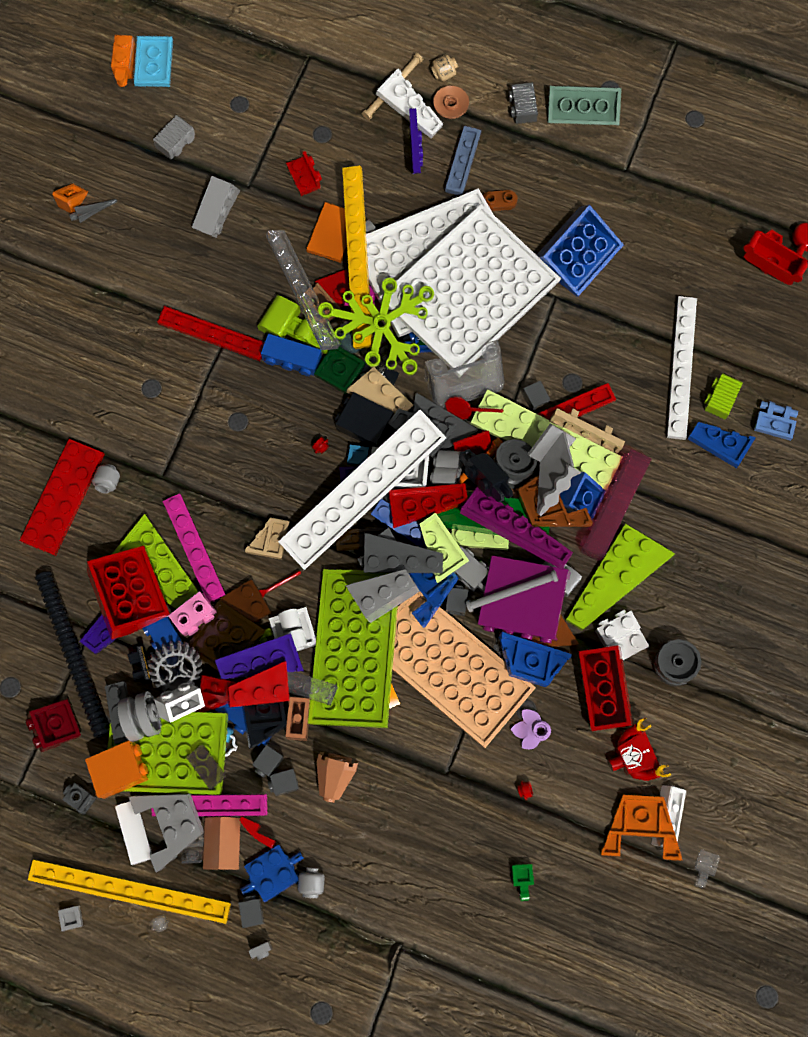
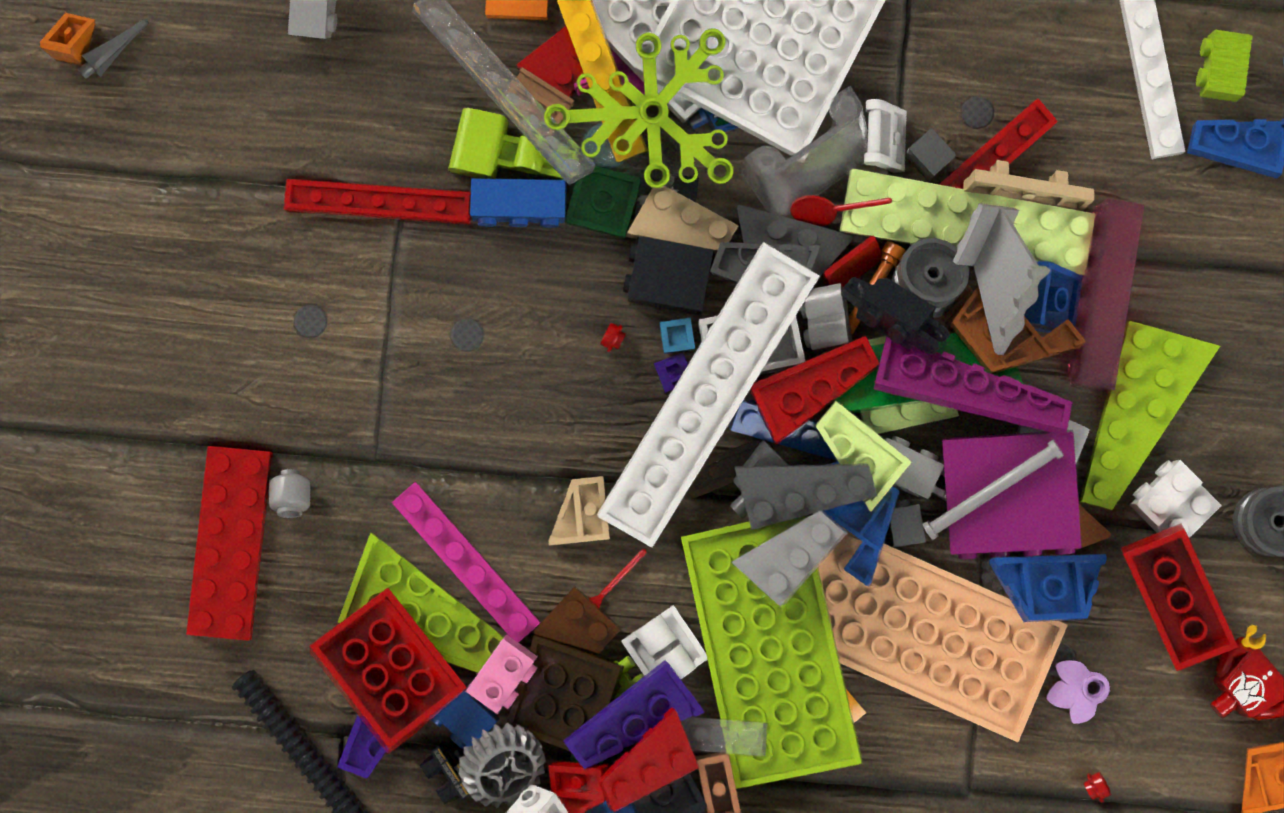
camera: 15 degrees left, 10 degrees up
(517, 378) = (886, 136): none -> white plate

